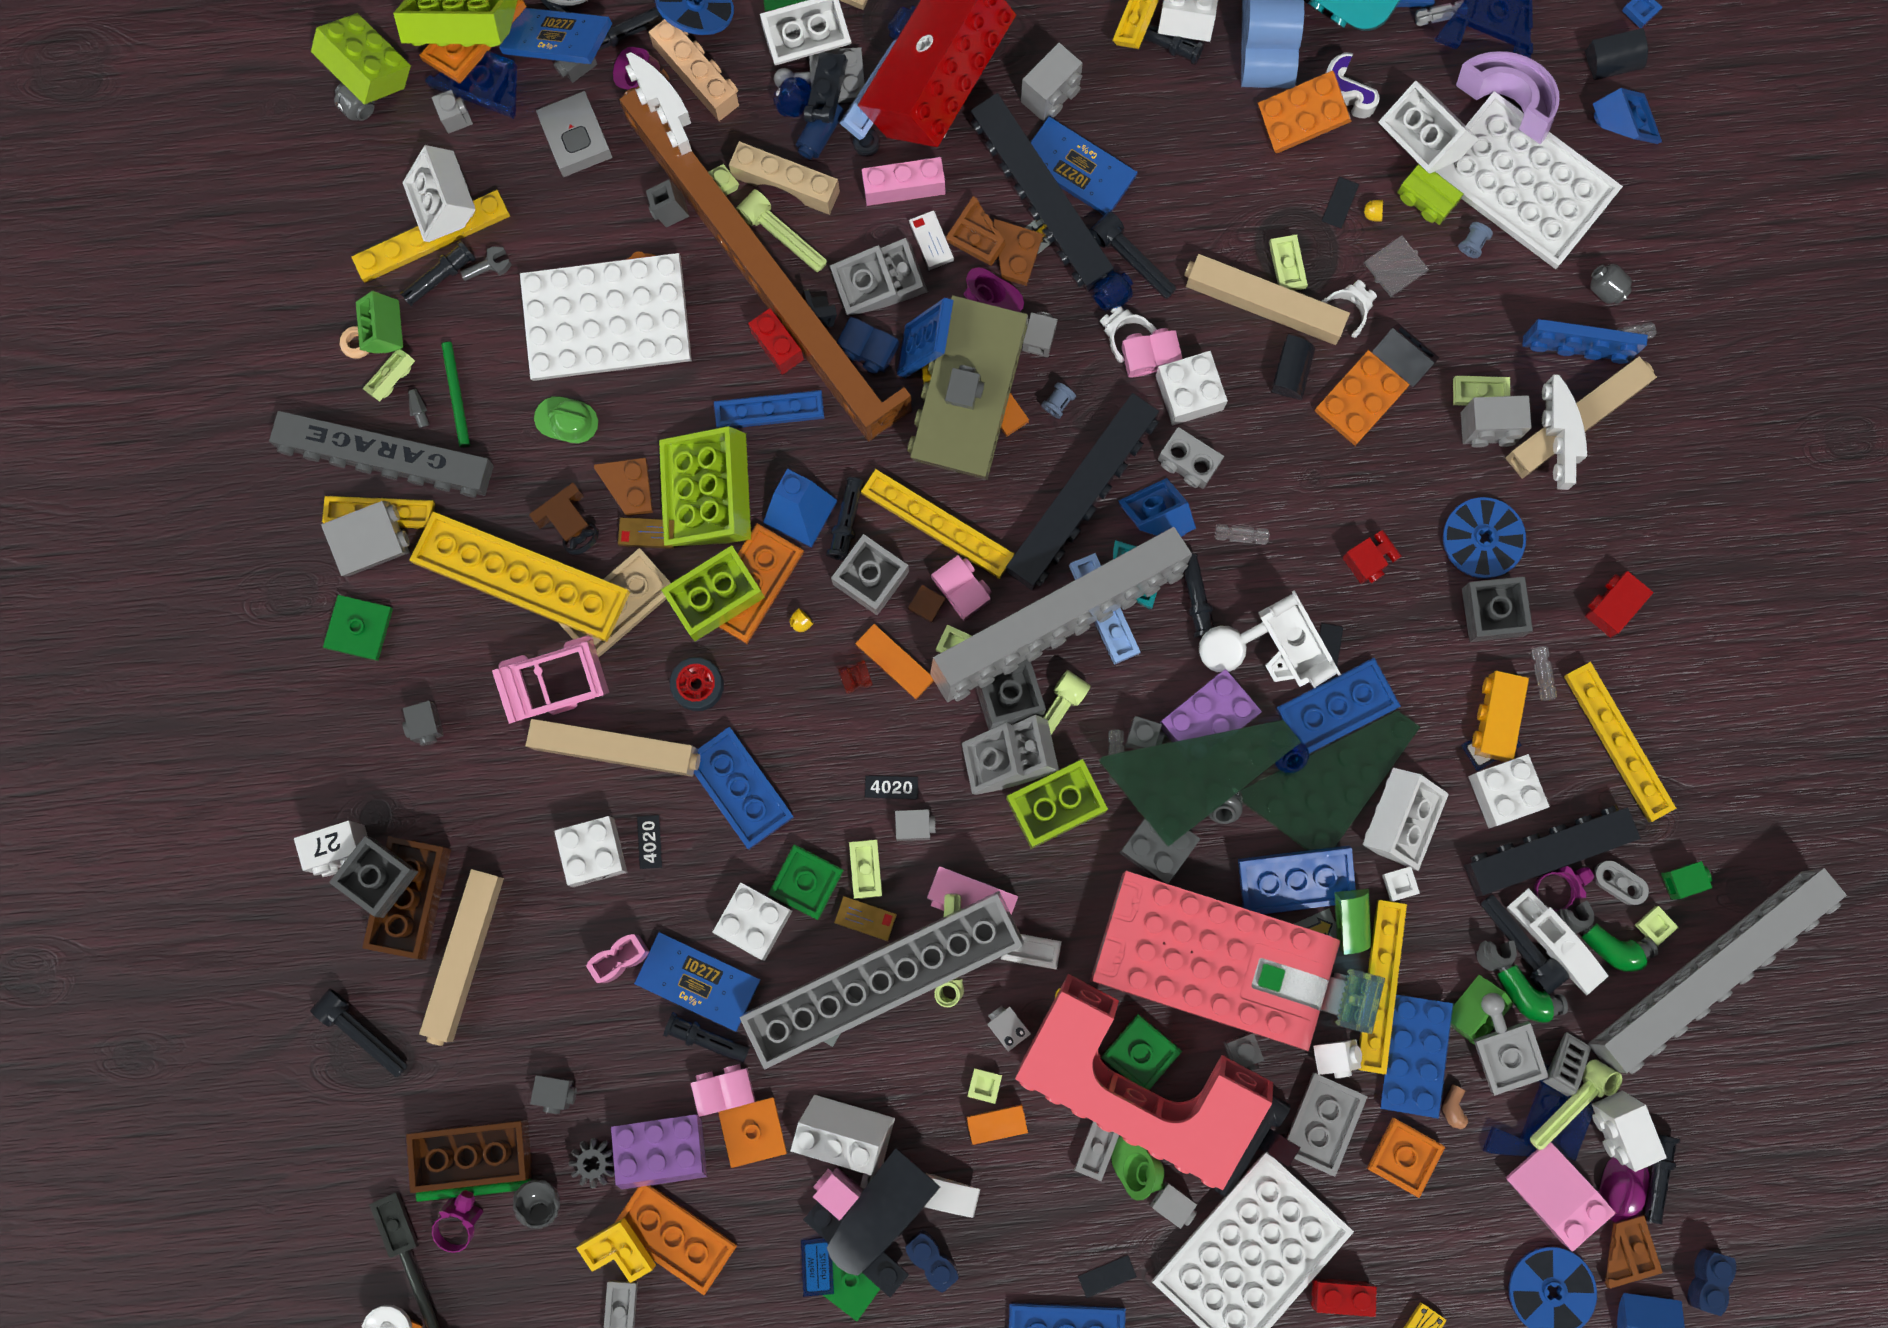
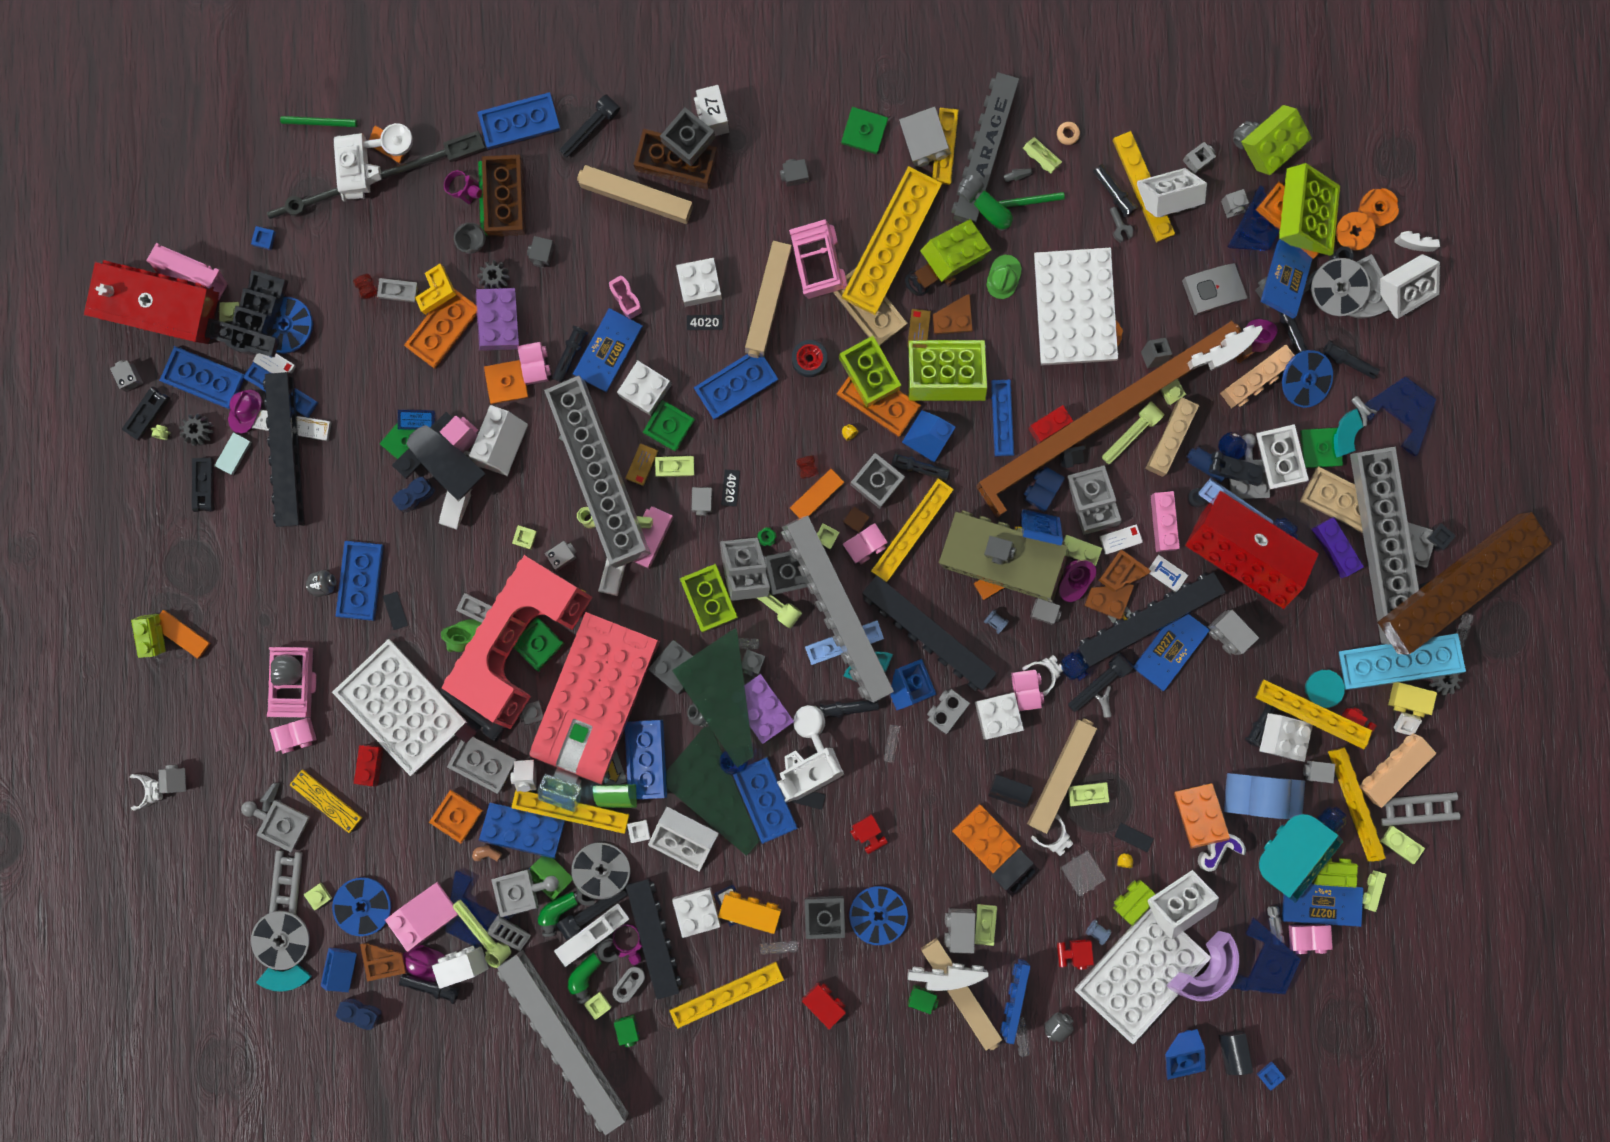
camera: 95 degrees right, 5 degrees up
(353, 1143) = (518, 120): none -> blue plate
(379, 323) = (1079, 149): bright green brick -> none
(388, 161) = (1192, 160): none -> light grey brick
(466, 440) = (985, 203): none -> green piece
(531, 483) = (955, 250): none -> lime brick
(951, 283) = (1082, 550): none -> yellowish green plate
(965, 734) = (761, 536): none -> green plate
(973, 176) = (1167, 573): none -> white sticker
(997, 1124) = (499, 544): orange slope -> none
(1159, 249) = (1105, 702): none -> light grey bar
(1174, 1206) = (436, 657): light grey brick -> none
(1482, 947) = (588, 879): none -> light grey piece
(1508, 262) = (1079, 952): none -> red brick
(1595, 469) = (923, 1000): none -> green brick

